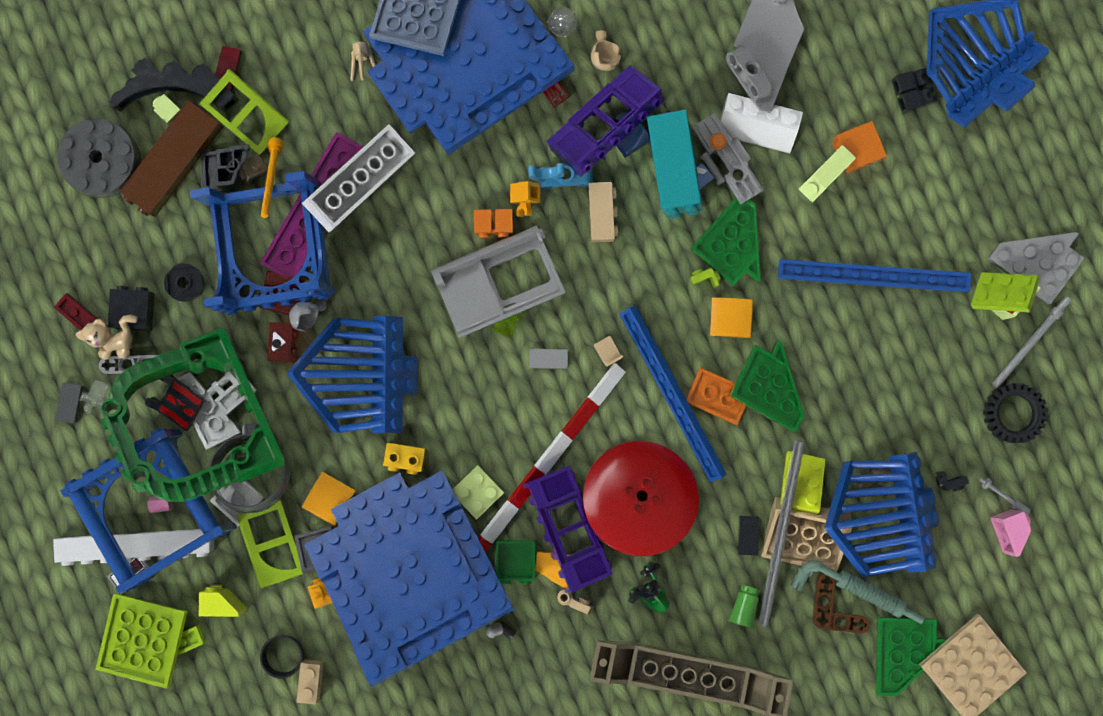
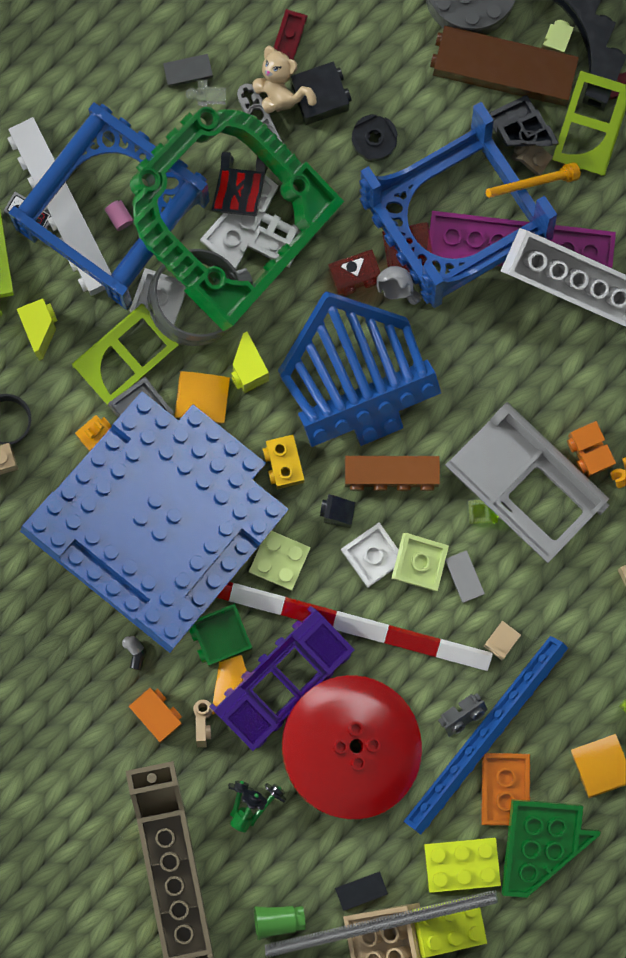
camera: 60 degrees right, 5 degrees down
(319, 455) = (248, 366): none -> neon yellow slope
(446, 379) = (392, 472): none -> dark orange brick
(459, 433) = (337, 511): none -> black slope
(503, 420) = (372, 554): none -> white tile
(523, 387) = (420, 562): none -> yellowish green plate
(554, 635) = (155, 714): none -> orange piece
(653, 412) = (472, 709): none -> dark grey hinge
(760, 452) = (462, 865): none -> neon yellow plate

